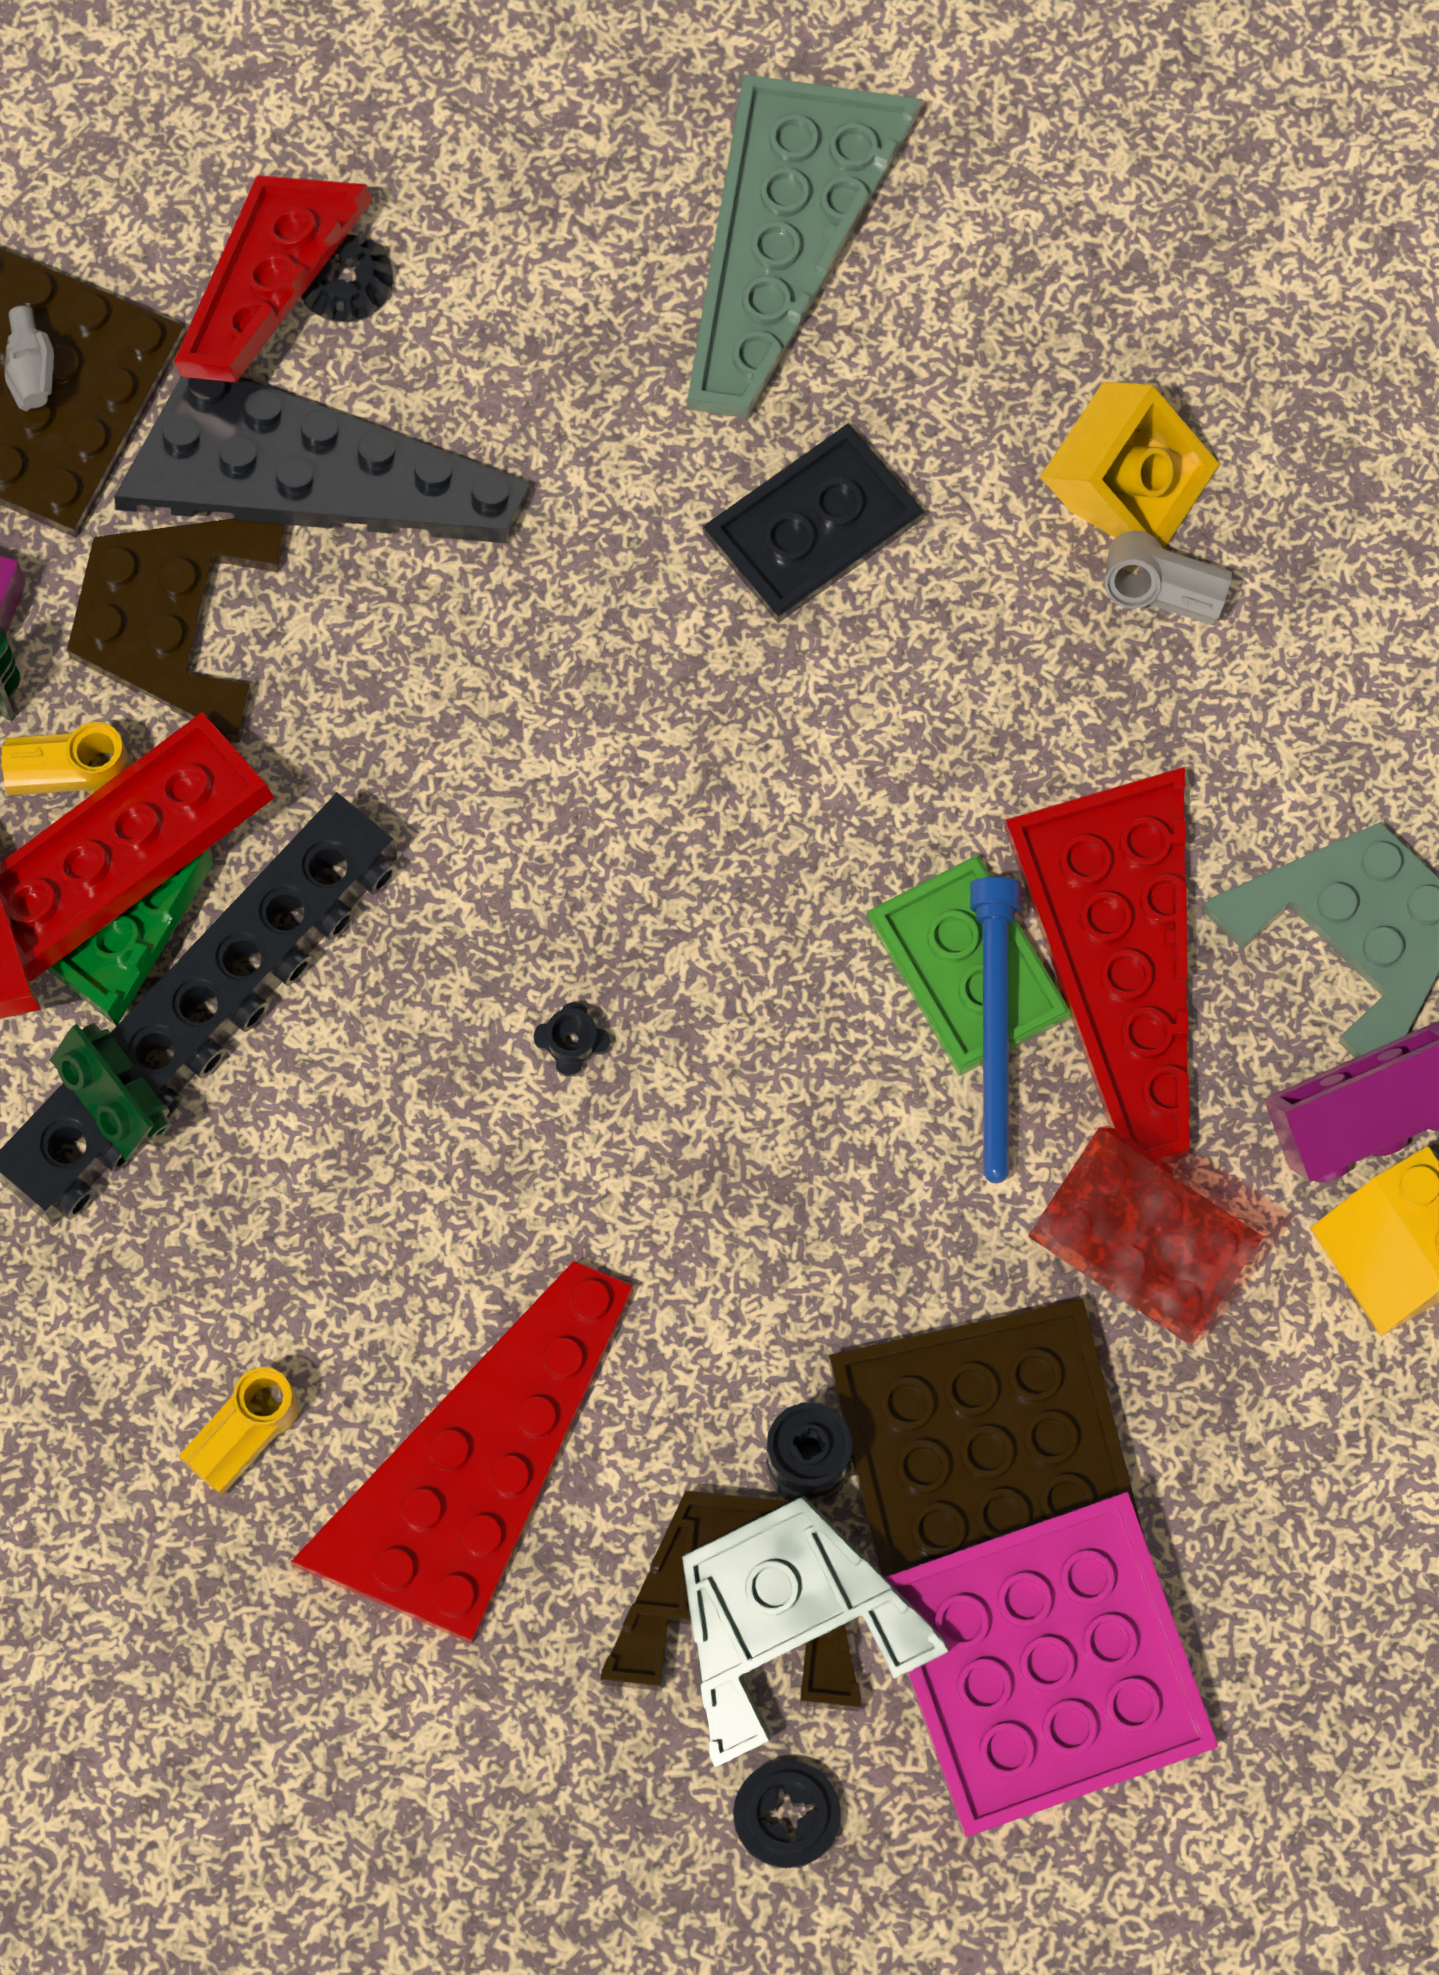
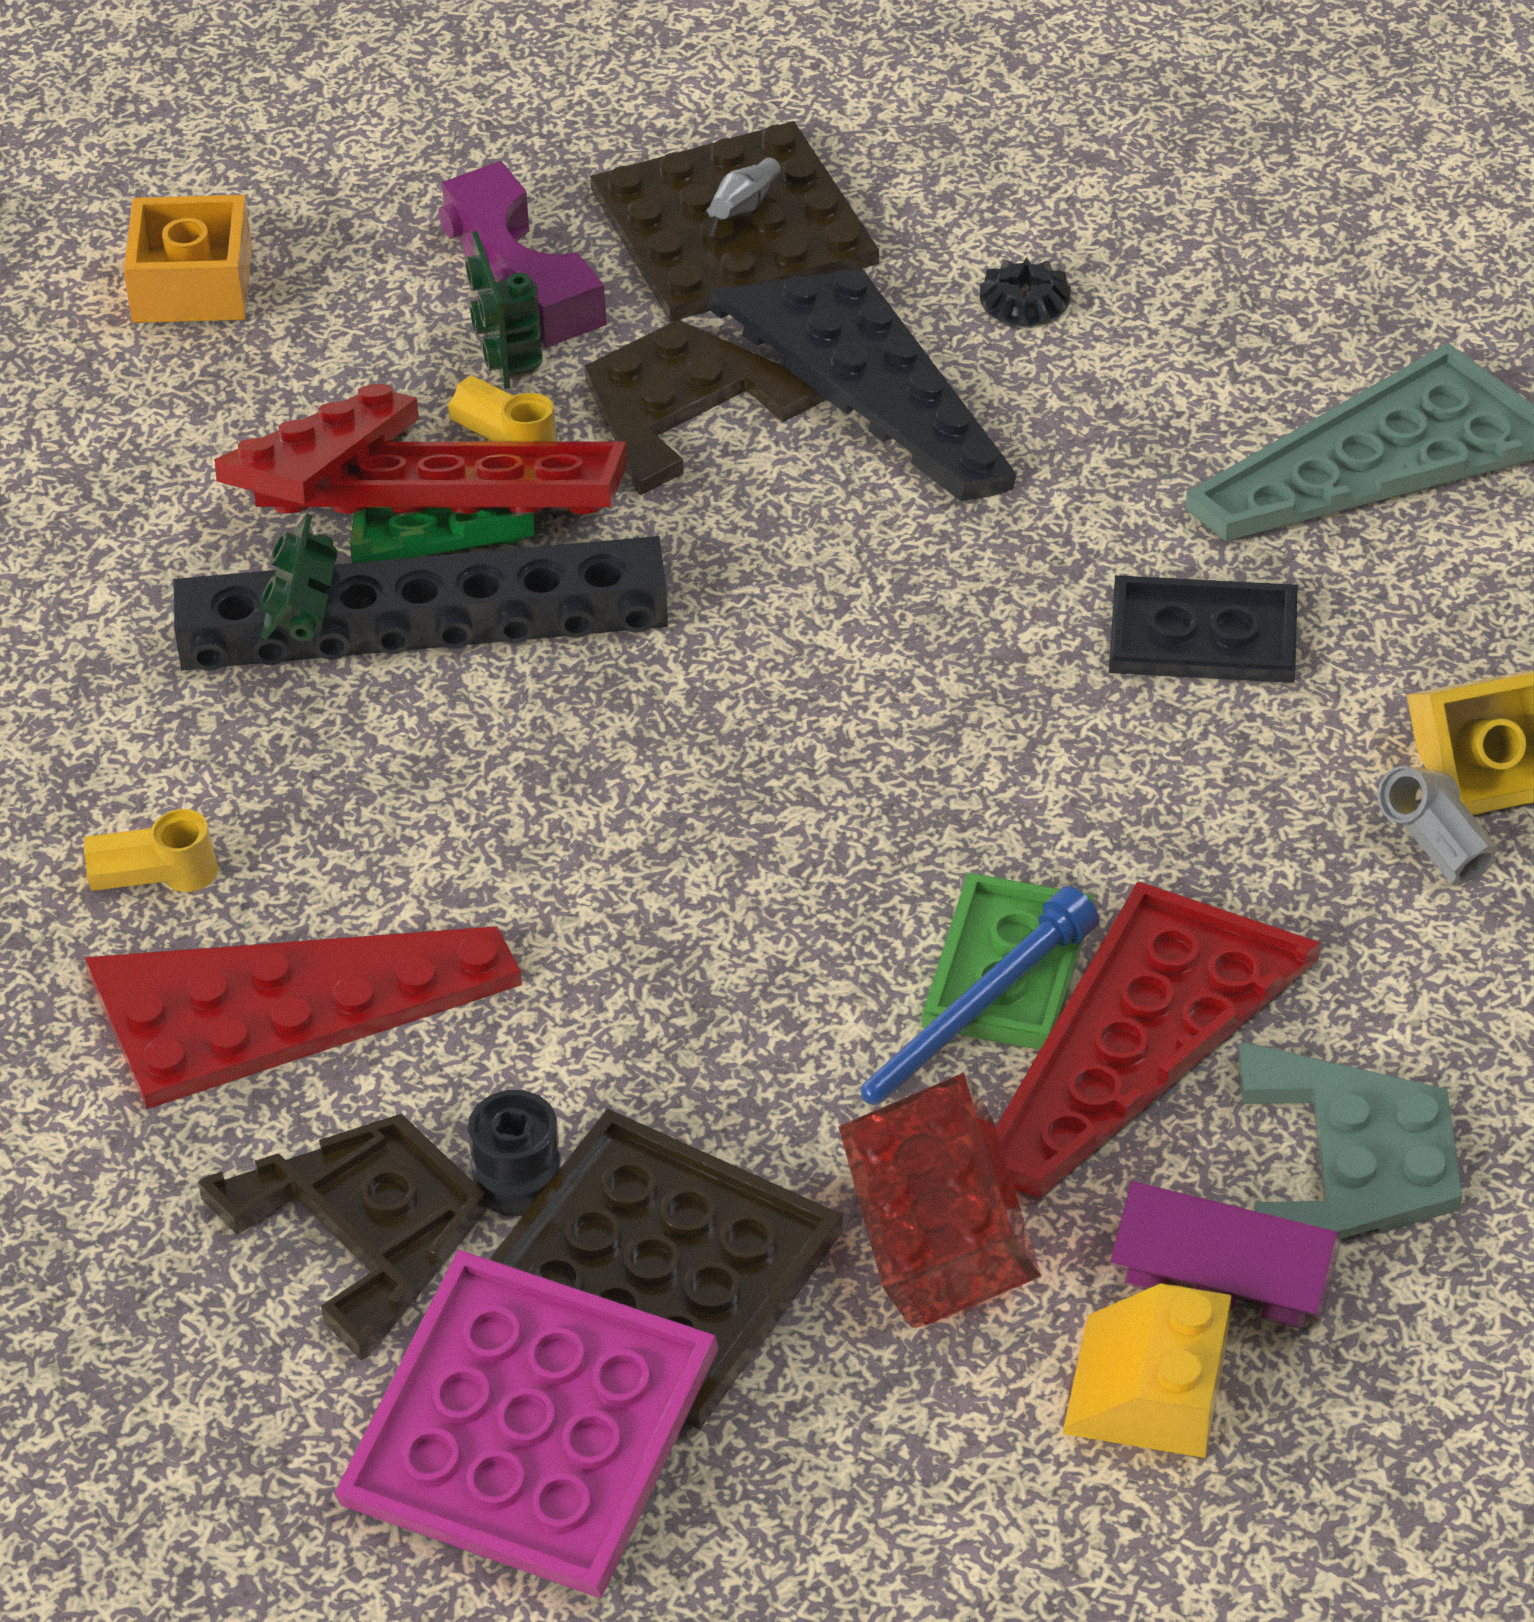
camera: 45 degrees right, 25 degrees down
(264, 269) = (964, 241): red wing -> none
(576, 1021) = (659, 800): black plate -> none
(776, 1590) = (369, 1202): wing -> none
(804, 1788) = (220, 1357): black gear -> none

